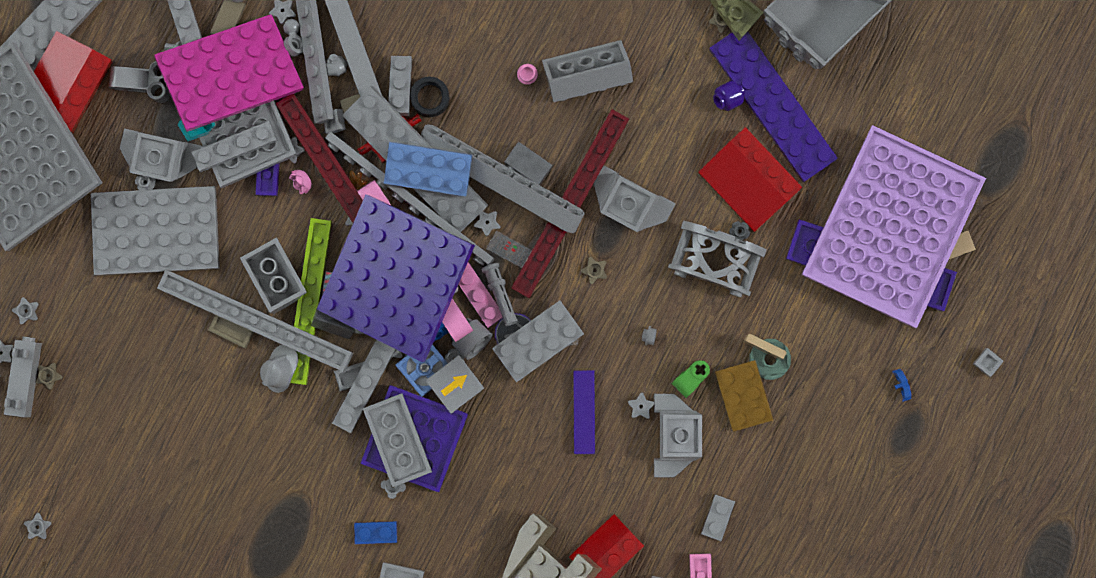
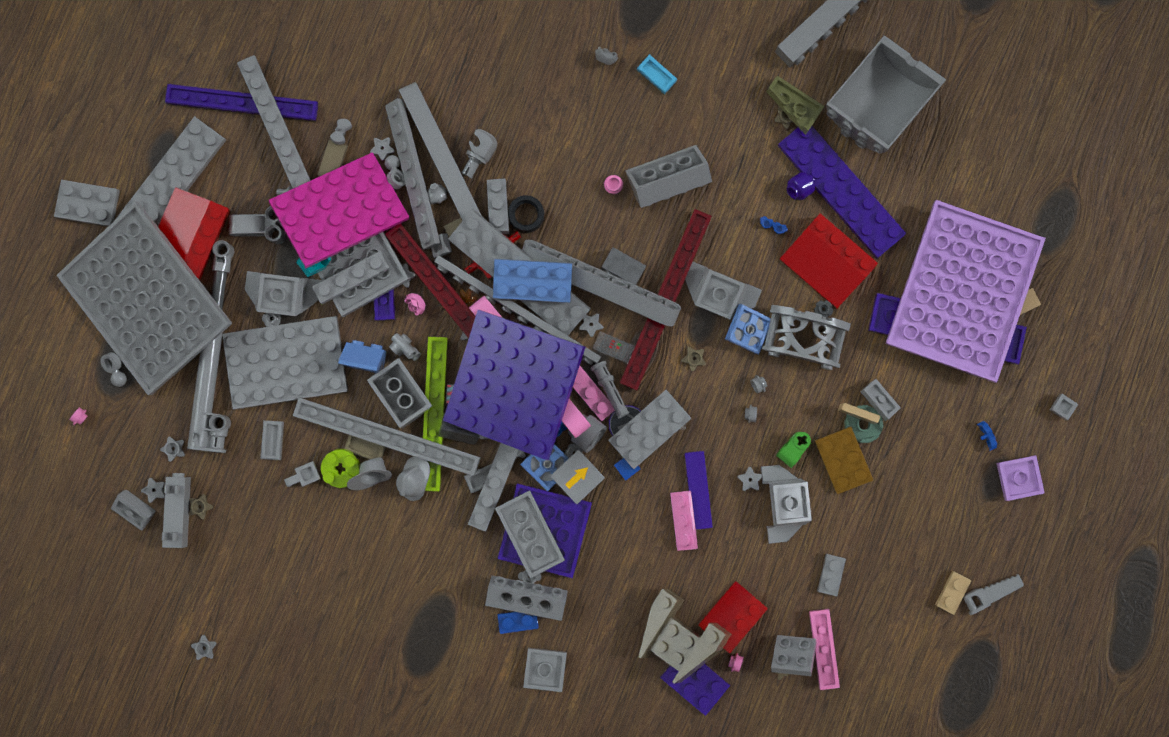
camera: 10 degrees left, 0 degrees up
(60, 291) = (203, 431): none -> light grey piece
(132, 312) = (272, 440): none -> light grey tile
(164, 353) = (305, 475): none -> light grey plate
(193, 357) = (329, 470): none -> lime plate
(233, 359) = (370, 474): none -> light grey piece
(238, 233) = (363, 357): none -> medium blue slope
(281, 225) = (402, 345): none -> light grey plate
(386, 508) = (526, 597): none -> light grey brick
(387, 27) = (480, 154): none -> light grey piece
(508, 381) = (625, 469): none -> blue tile
(565, 443) = (684, 520): none -> bright pink plate
(655, 244) = (748, 329): none -> medium blue piece
(661, 304) = (758, 384): none -> light grey plate
(689, 132) = (777, 227): none -> blue piece
(790, 334) = (880, 399): none -> light grey plate
(847, 550) = (953, 592): none -> tan plate
(889, 555) = (992, 593): none -> light grey piece
(932, 434) = (1020, 478): none -> lavender plate

